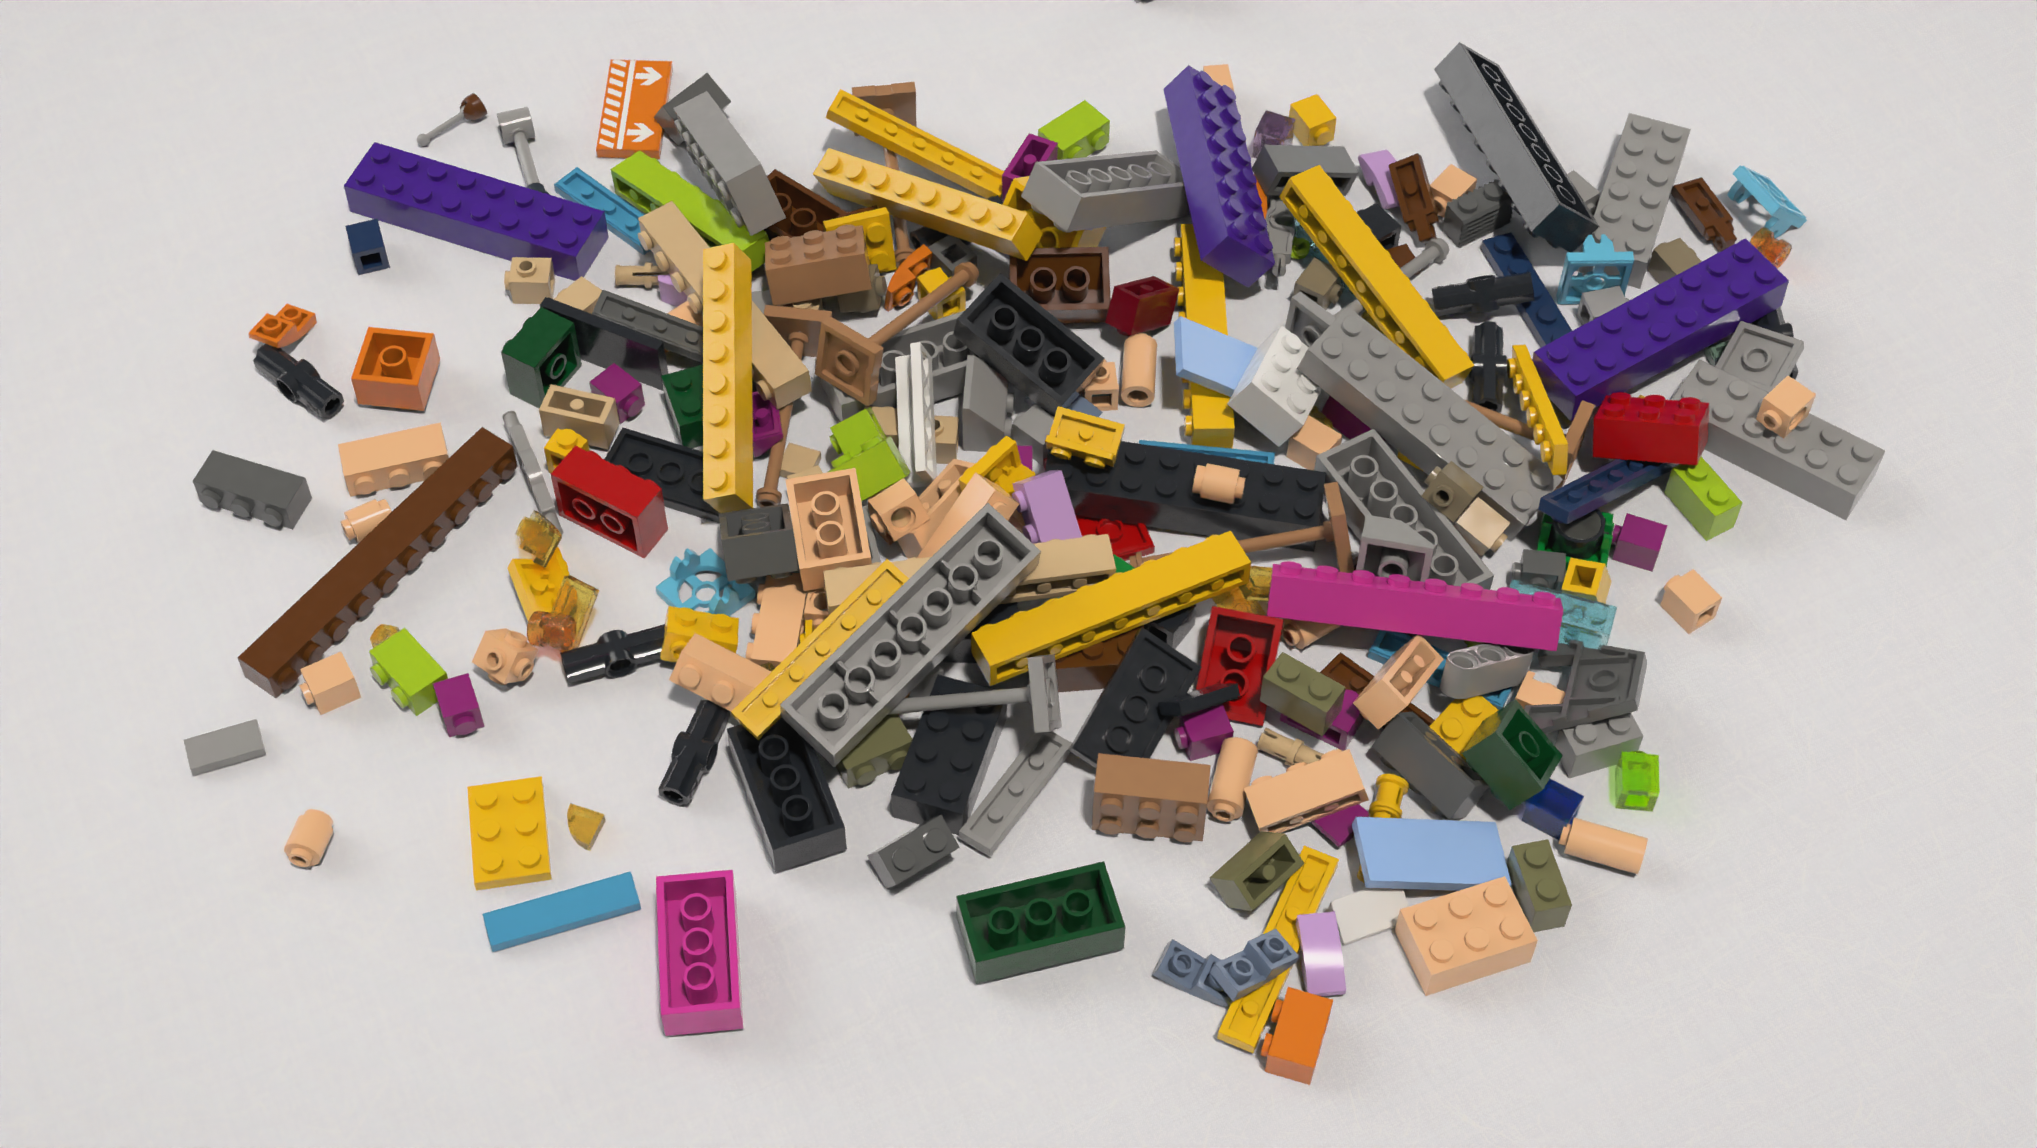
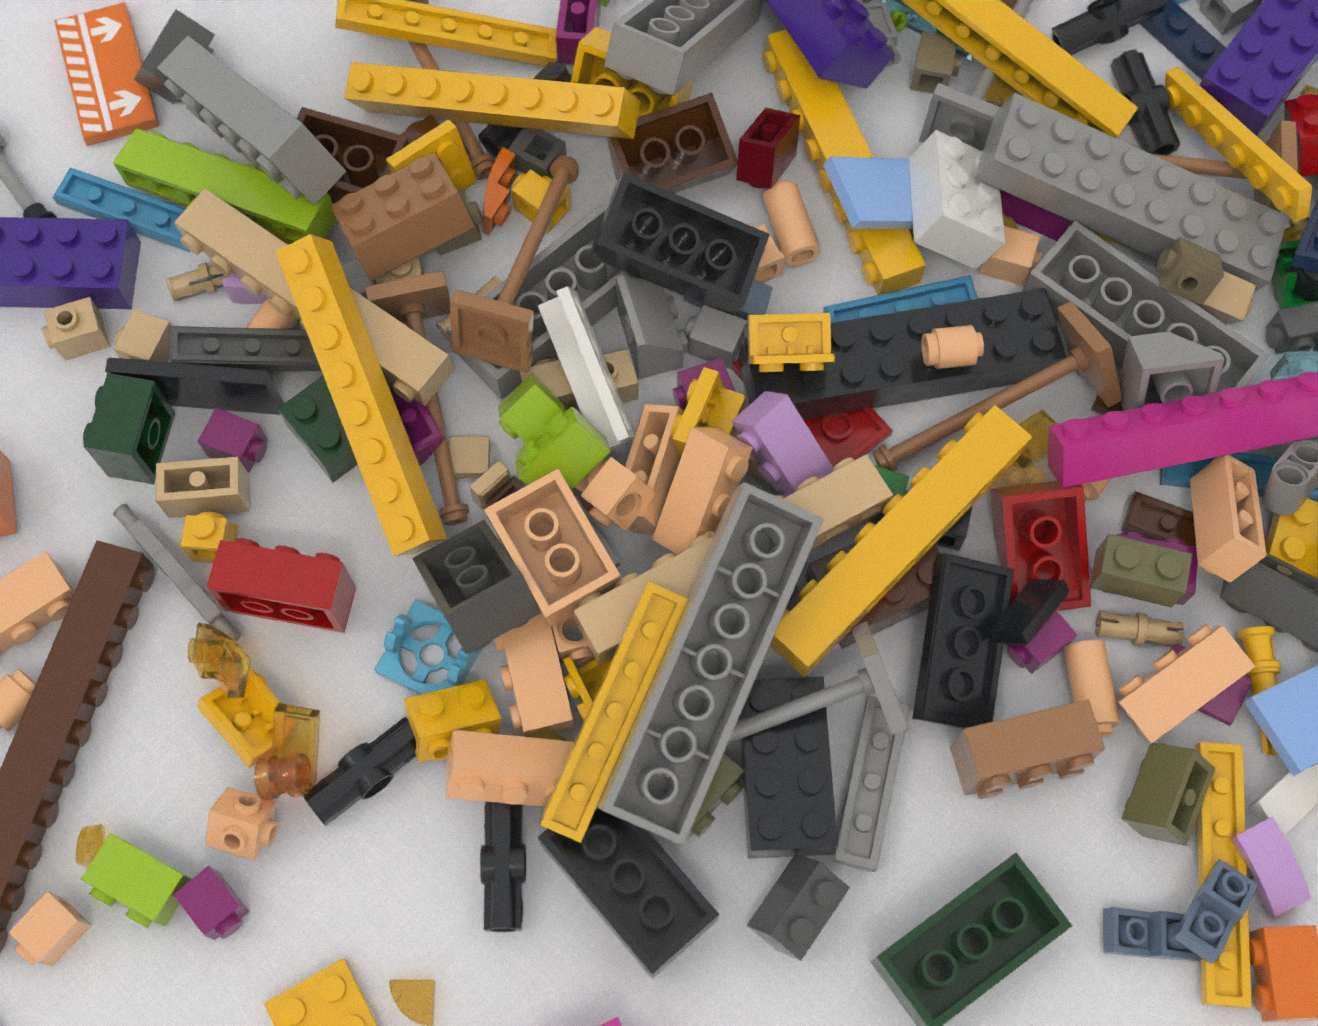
camera: 20 degrees left, 15 degrees up
(669, 465) = (319, 518): black tile -> none

